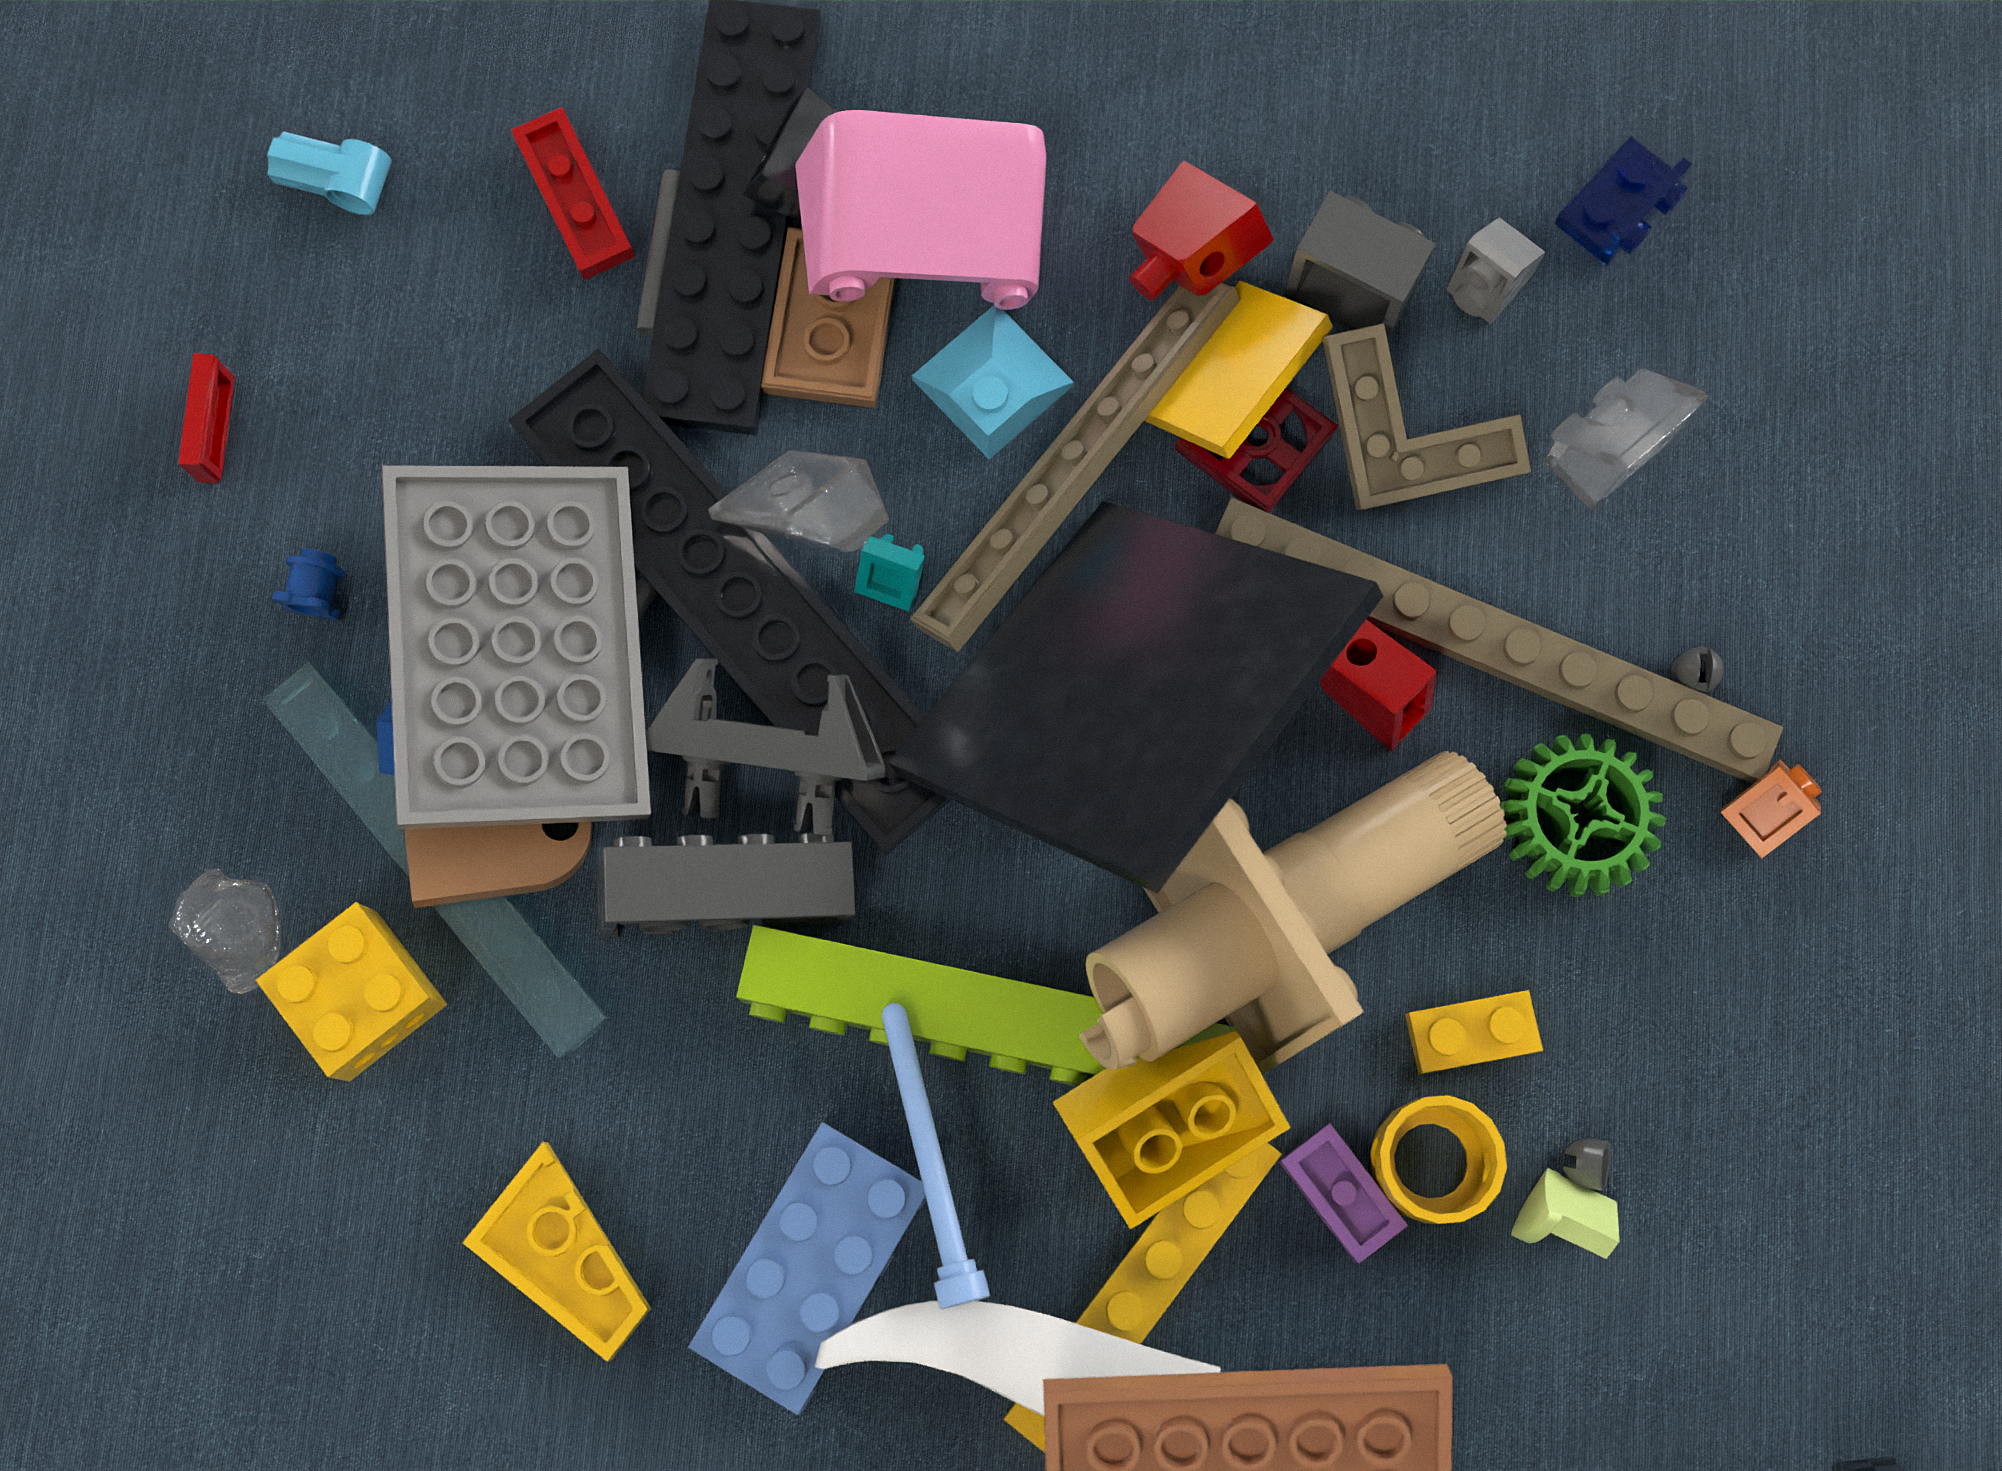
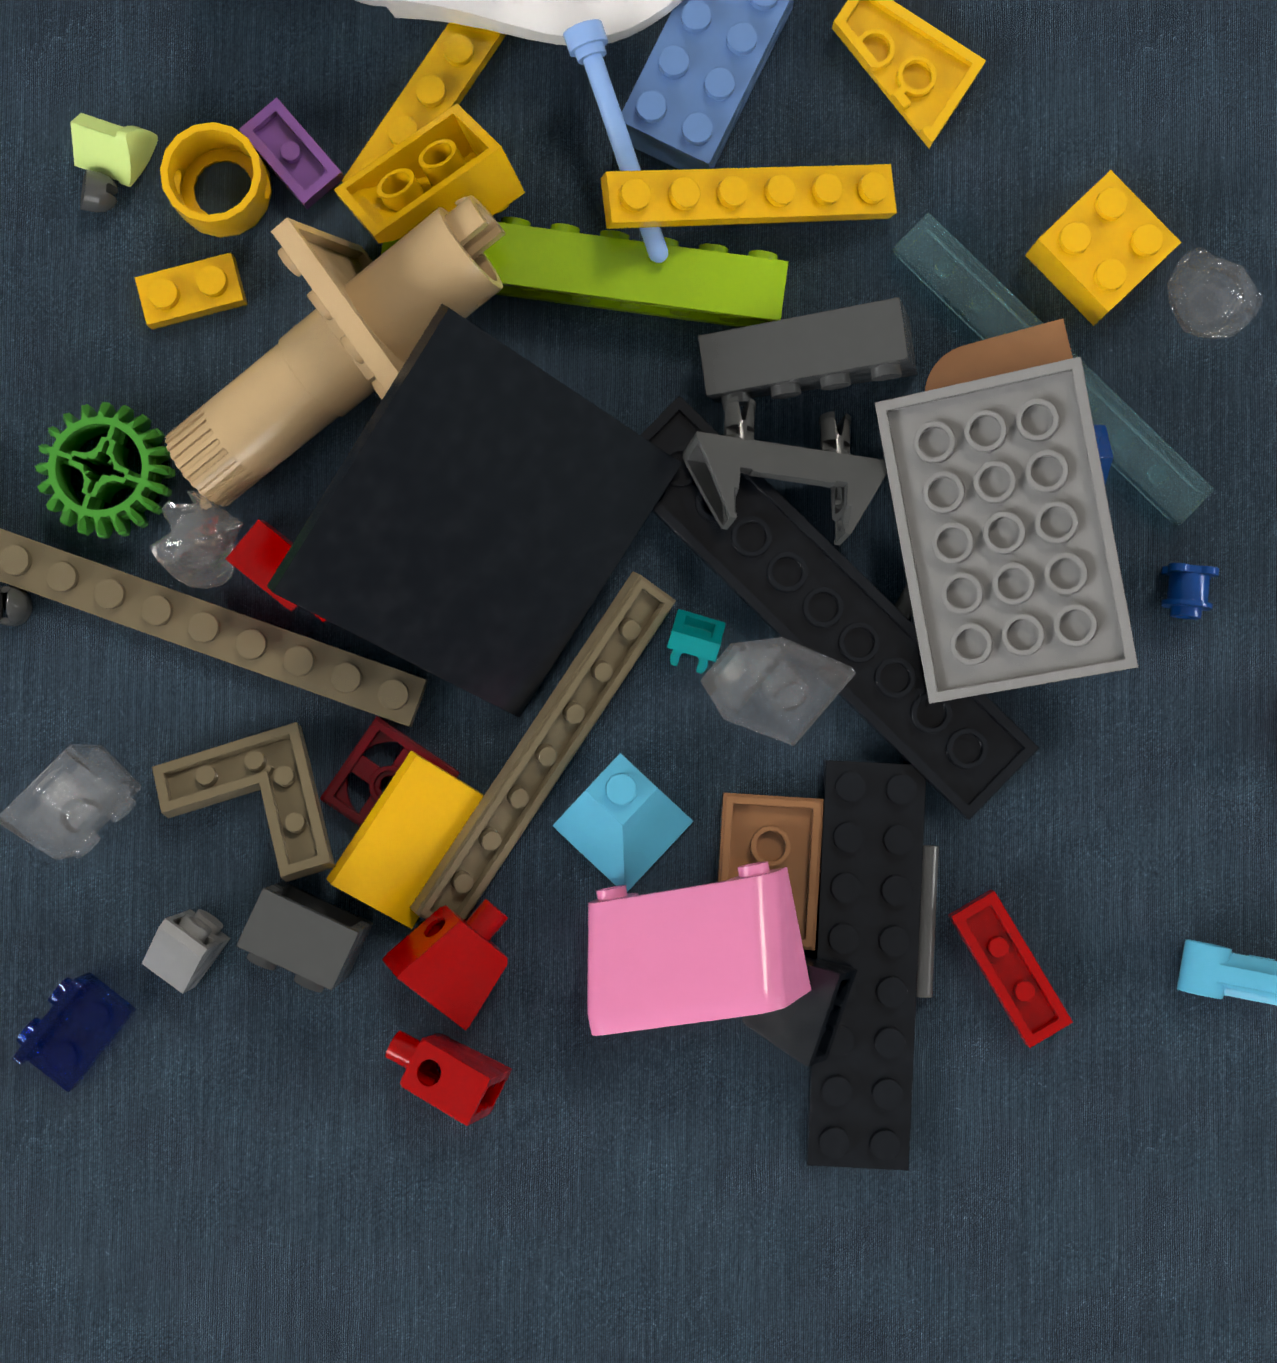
camera: 170 degrees right, 10 degrees up
(777, 1081) = (747, 195): none -> yellow plate
(1204, 117) = (467, 1079): none -> red torso
(1469, 714) = (198, 542): none -> clear hair

